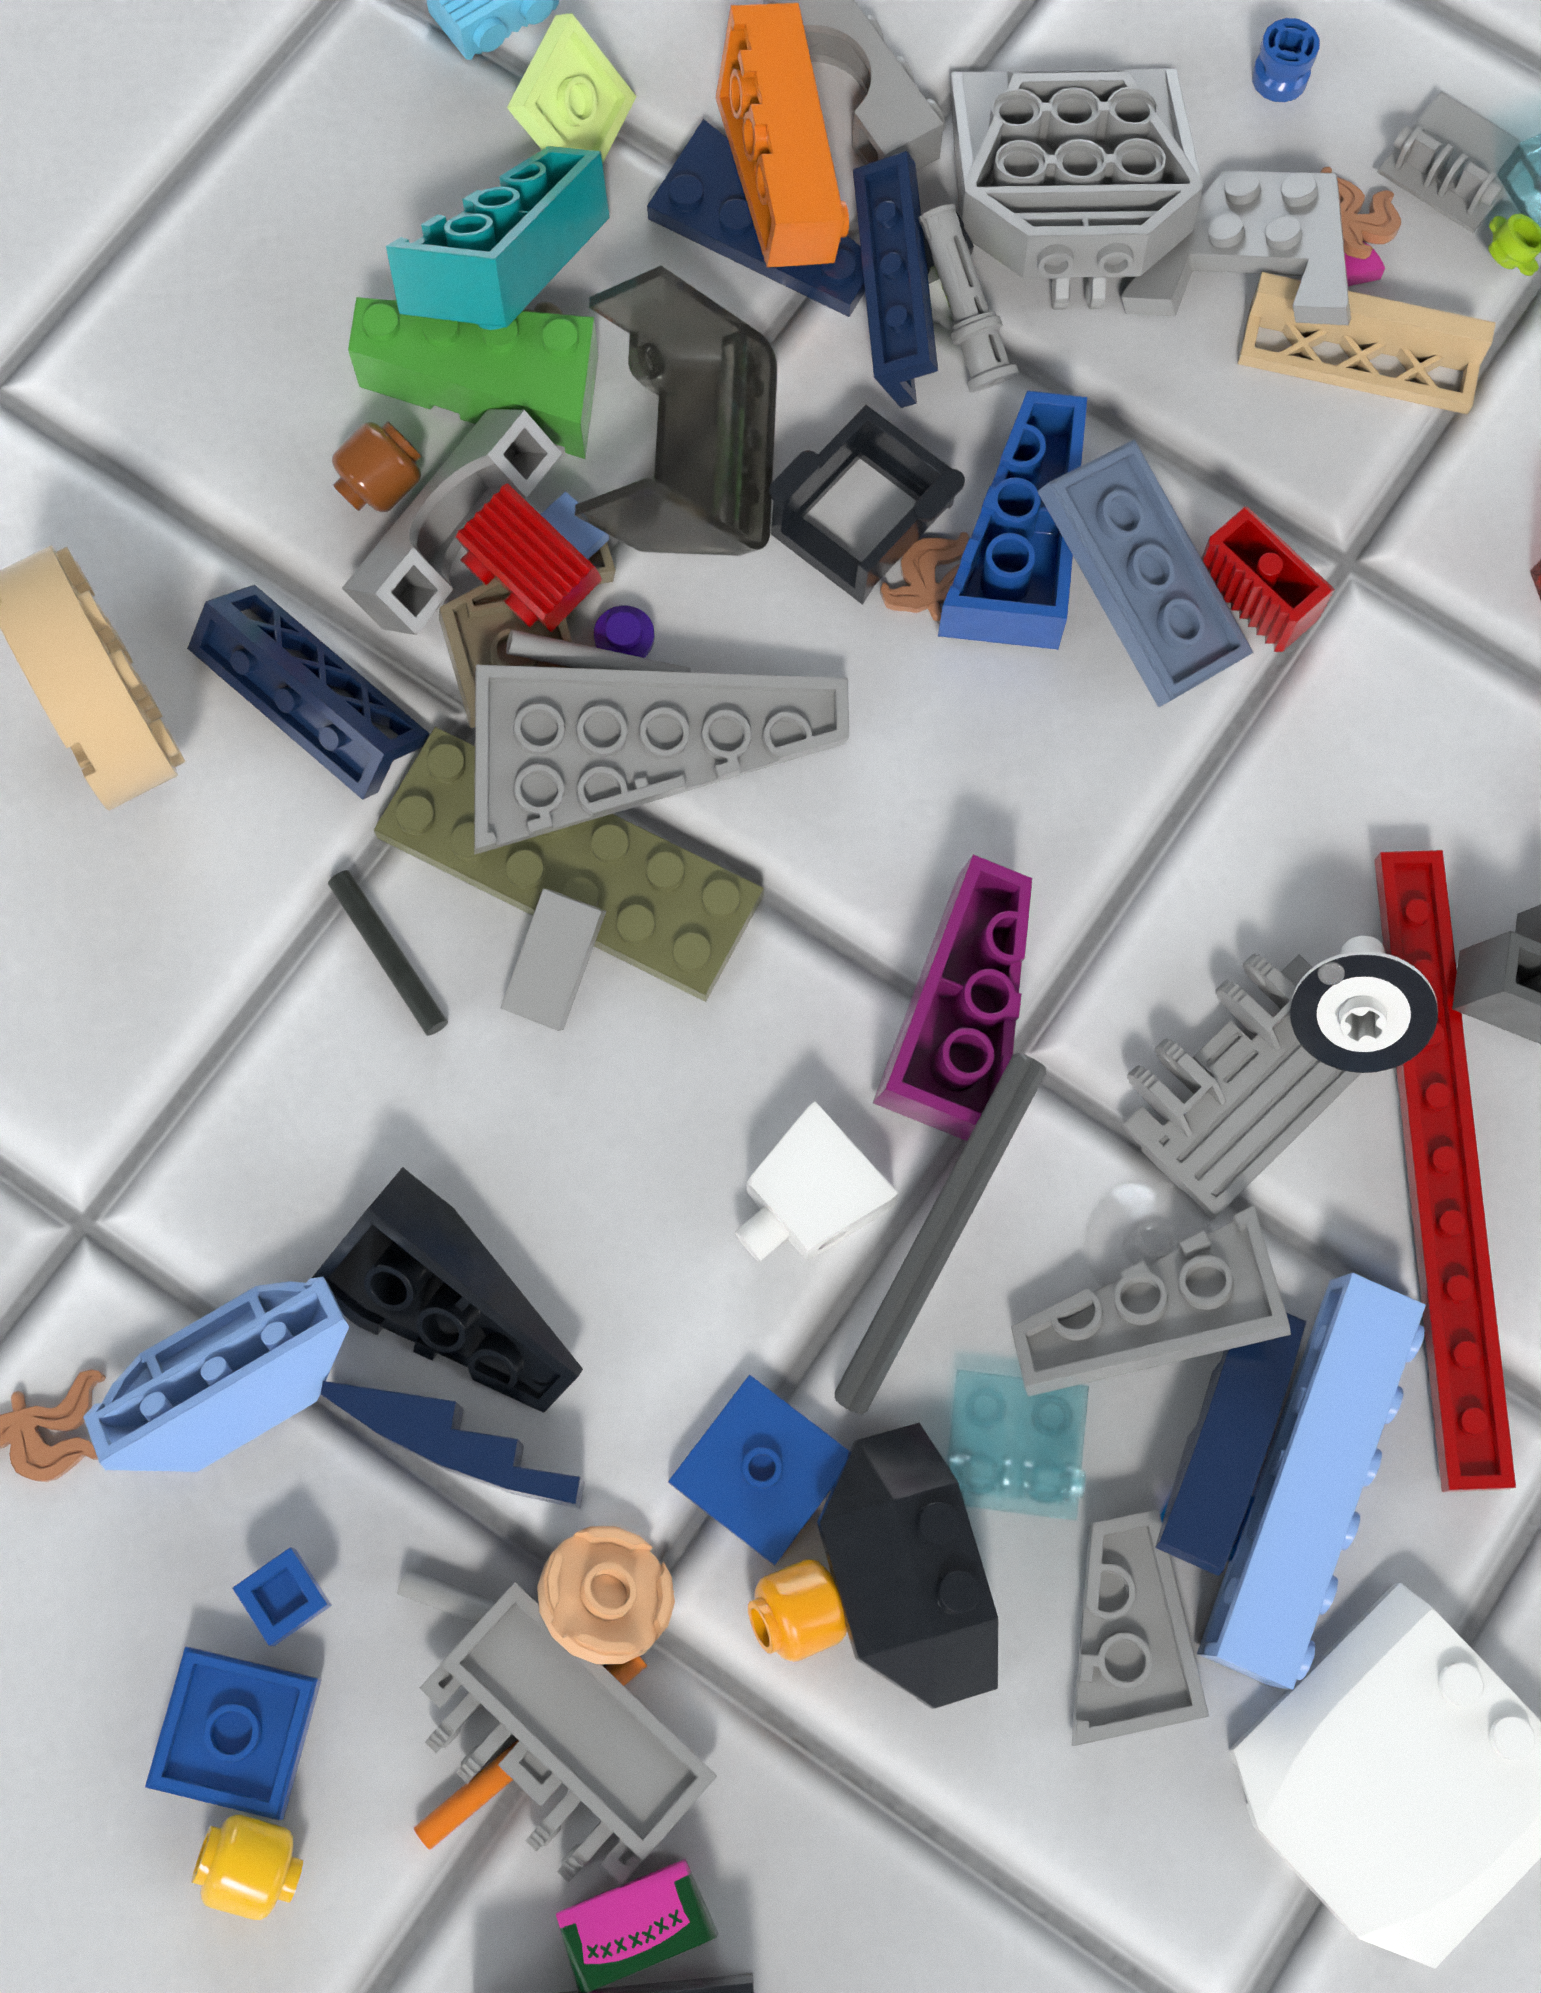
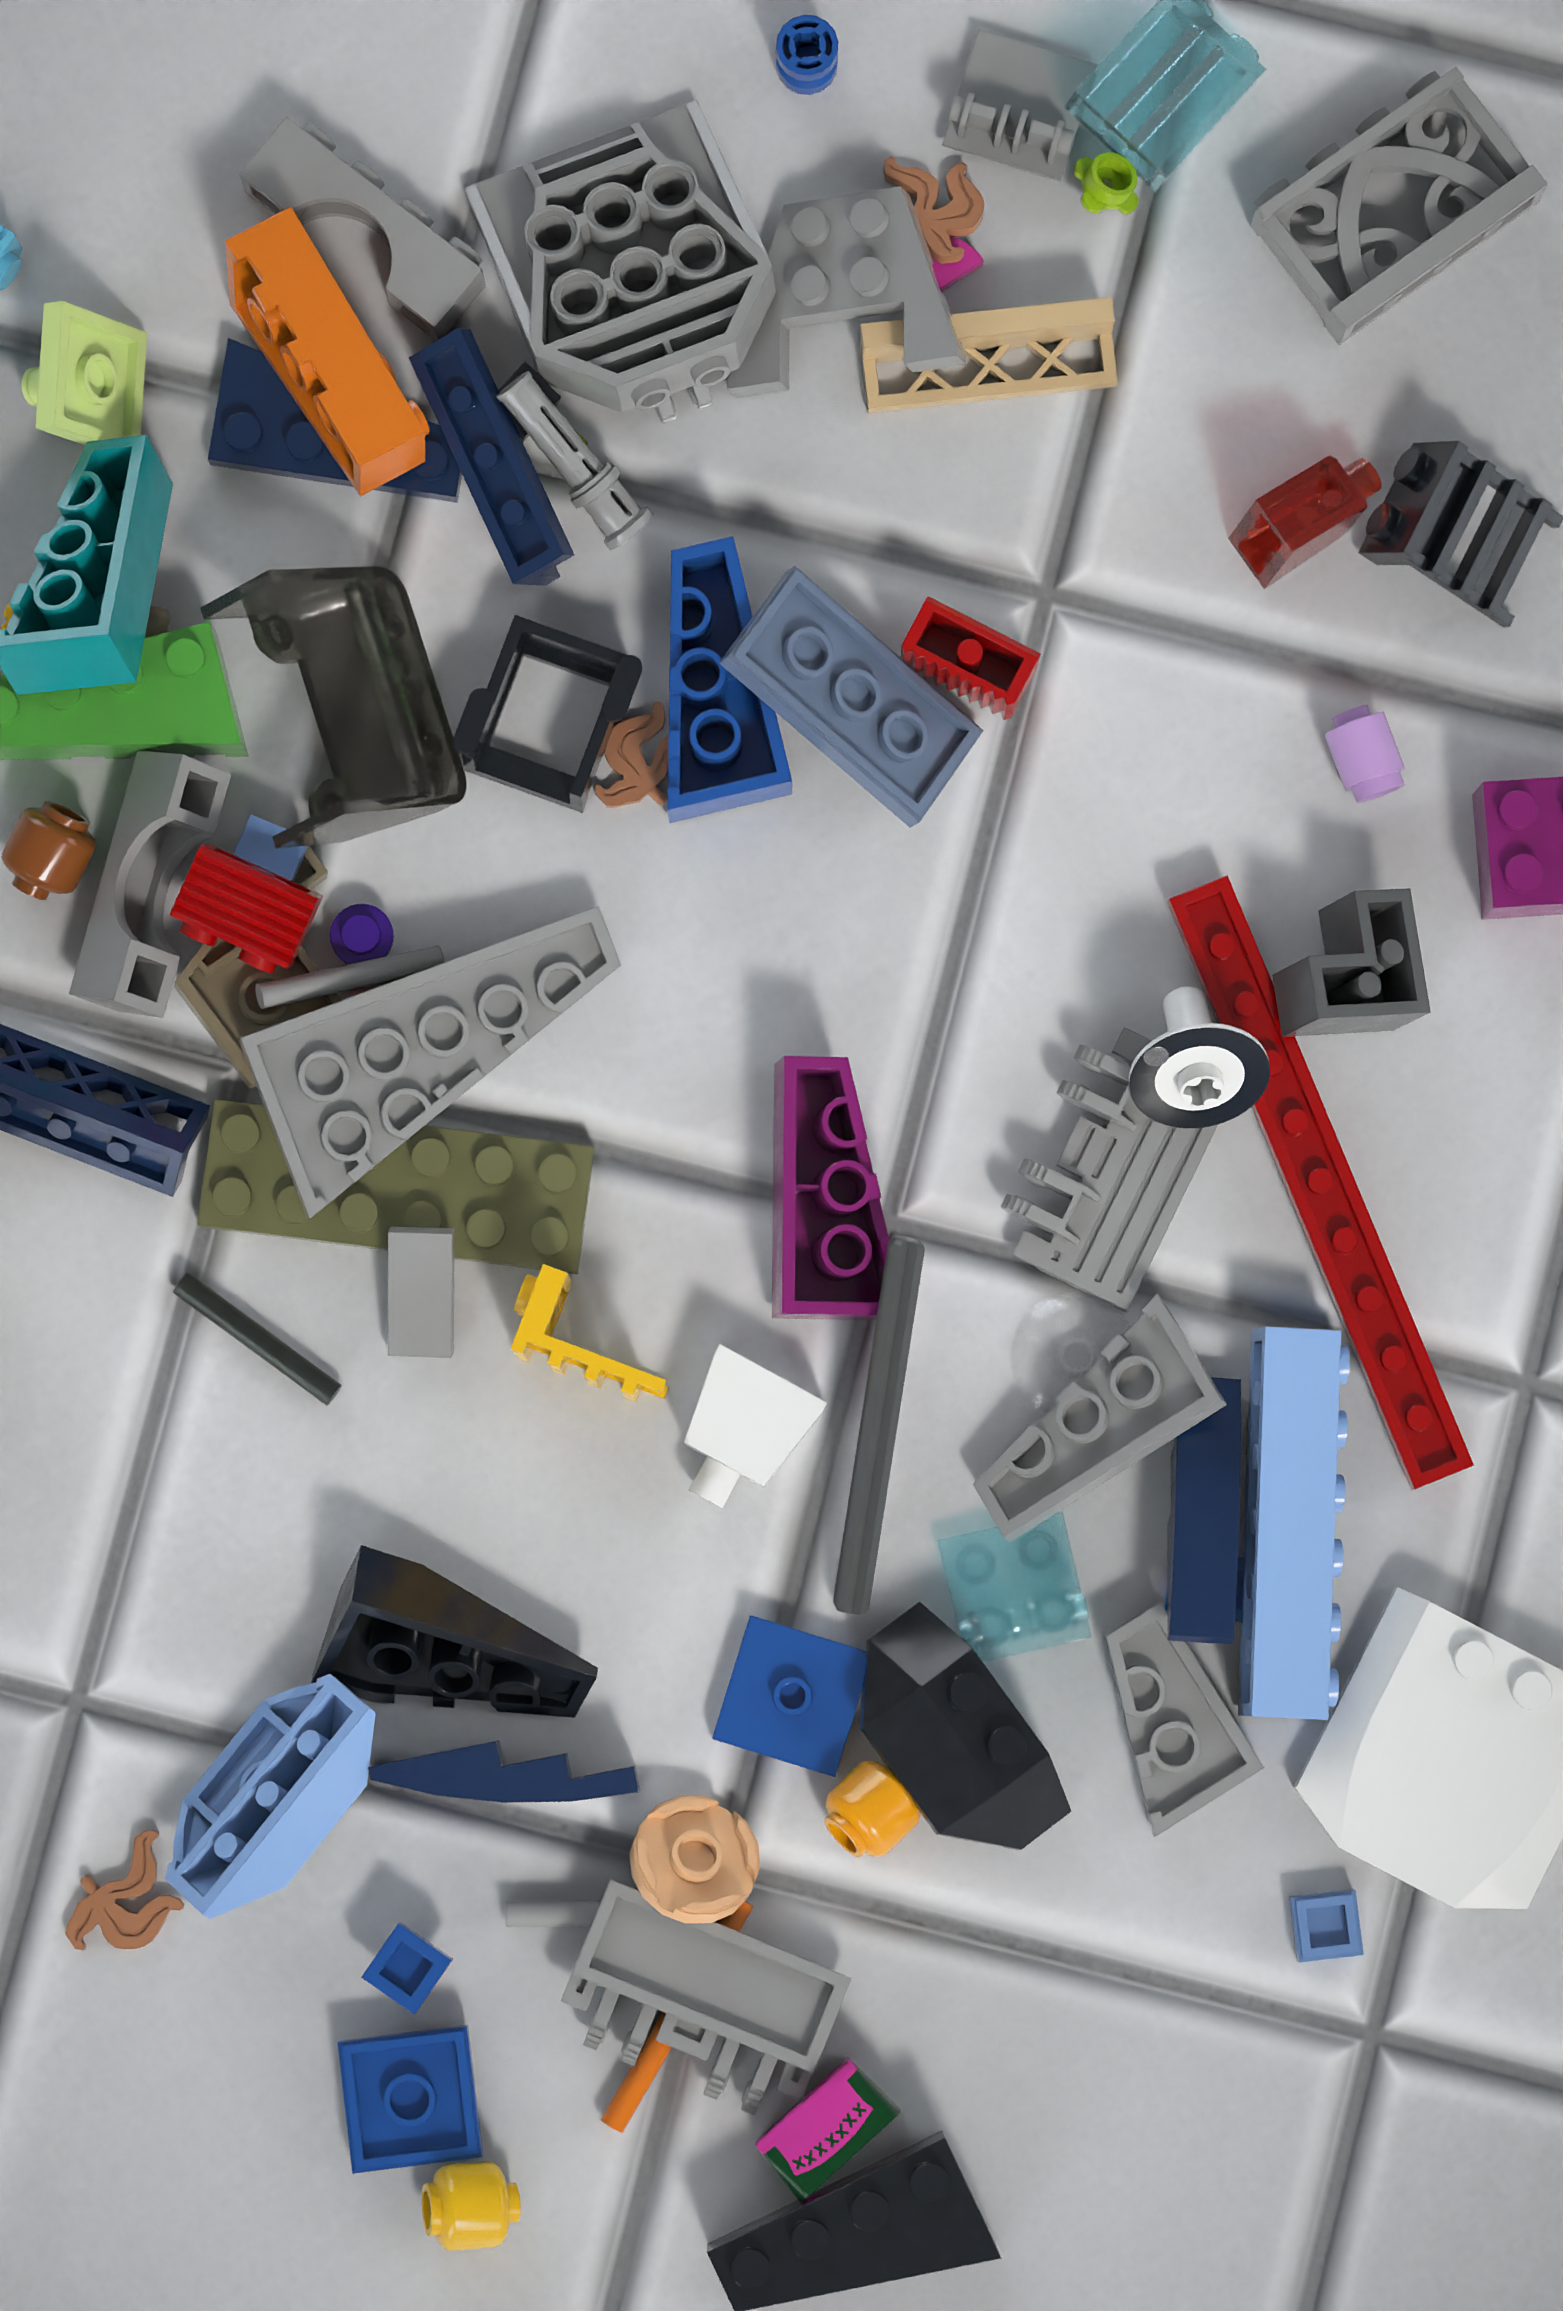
camera: 20 degrees left, 10 degrees up
(645, 1030) = (540, 1307): none -> yellow plate
(1219, 1907) = (1326, 1925): none -> medium blue tile

